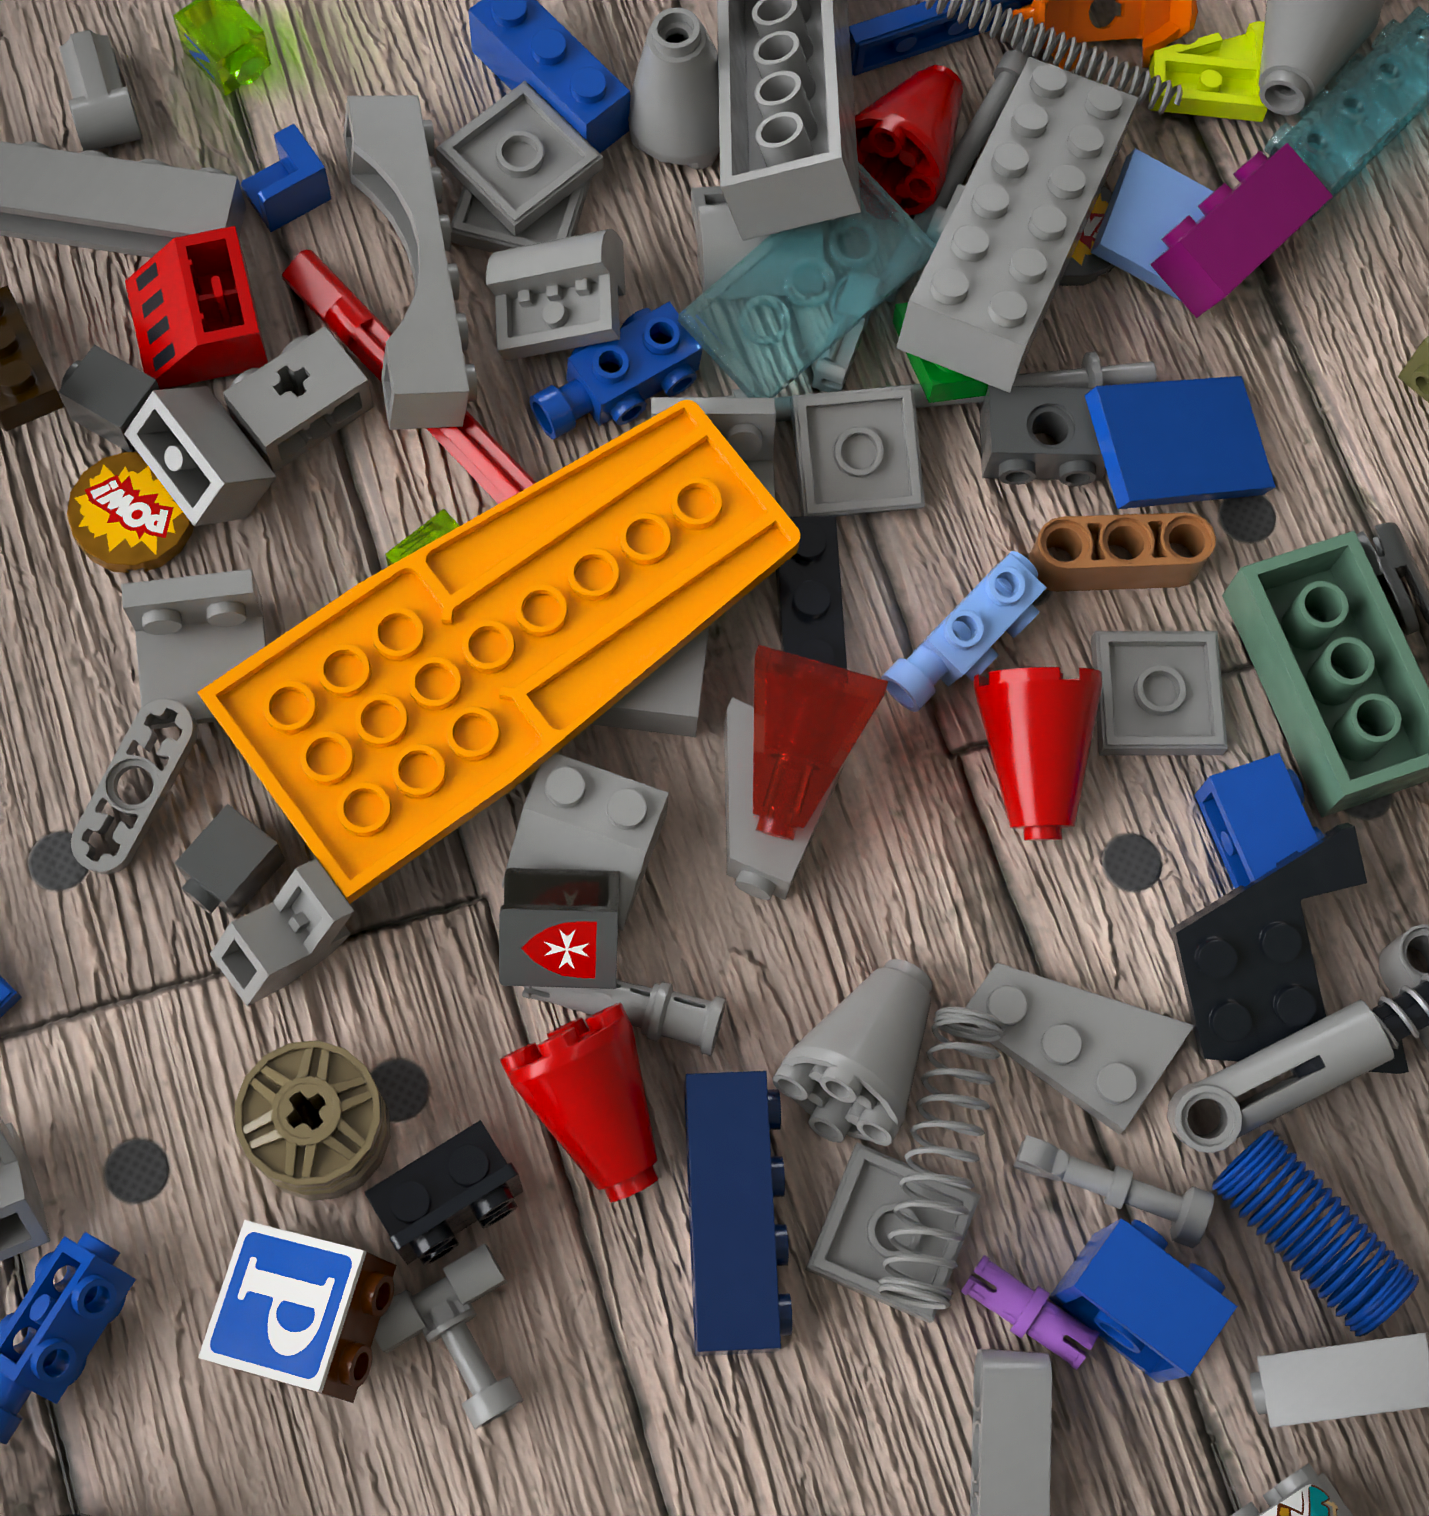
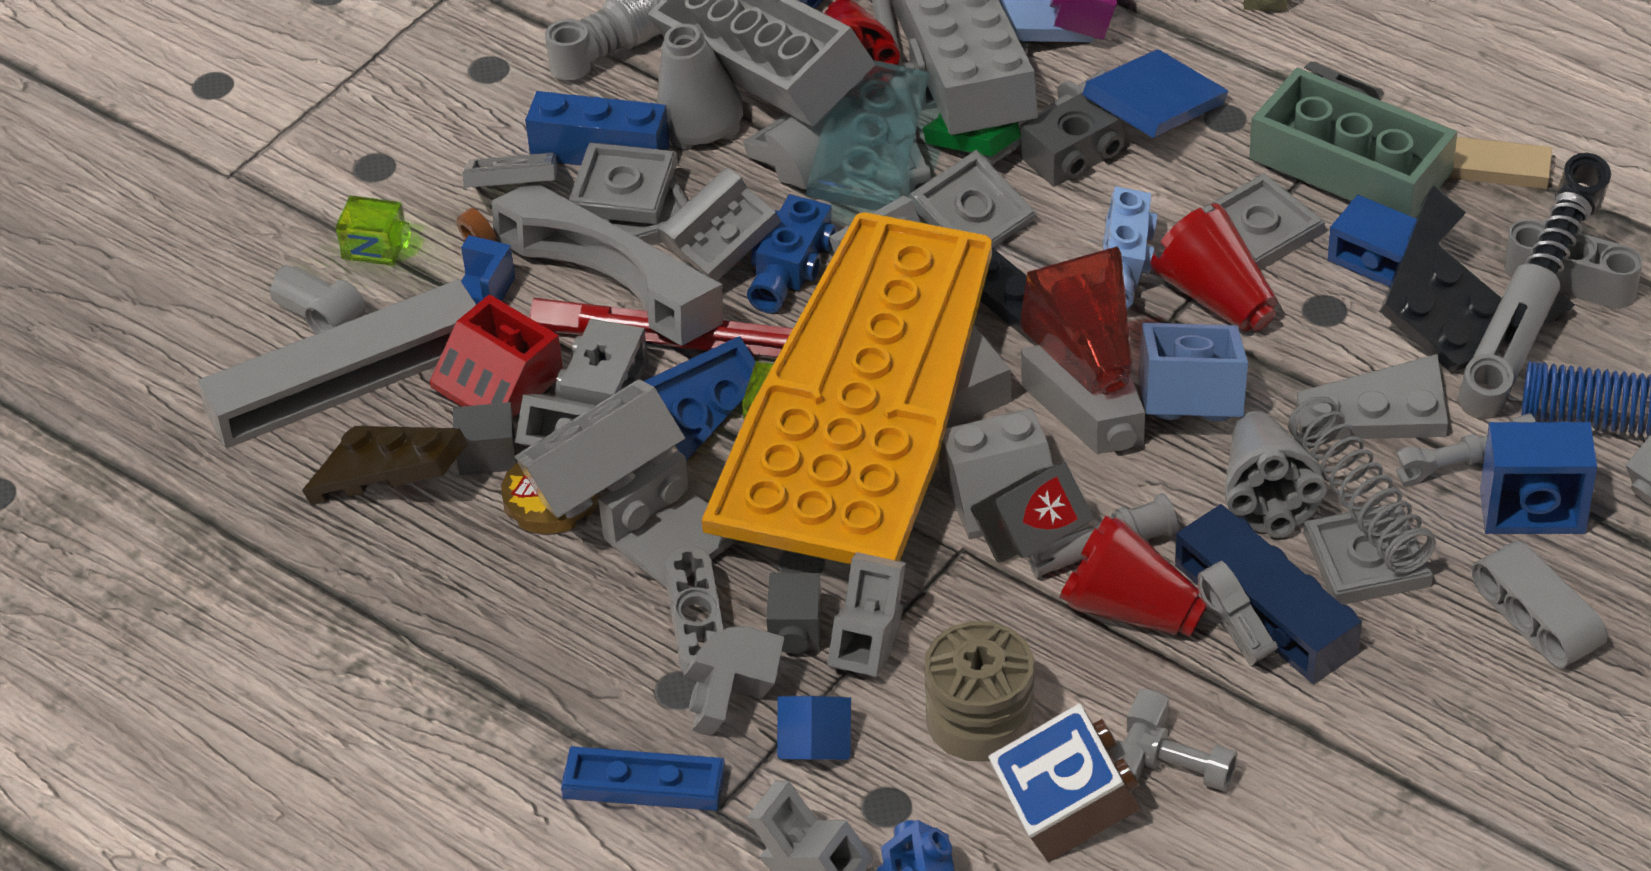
camera: 25 degrees left, 25 degrees down
(103, 886) = (735, 661): none -> light grey brick
(130, 1026) = (814, 727): none -> blue panel
(156, 527) = (600, 449): none -> light grey brick
(326, 115) = (475, 224): none -> dark orange tile
(354, 502) = (705, 390): none -> blue wing
(414, 62) = (510, 170): none -> light grey tile
(444, 1194) = (1098, 676): black bracket -> none
(663, 1227) = (1226, 597): none -> light grey piece
(889, 863) = (1192, 371): none -> medium blue brick
(1030, 1312) = (1482, 535): medium lavender pin -> none
(1143, 535) = (1177, 161): medium nougat beam -> none

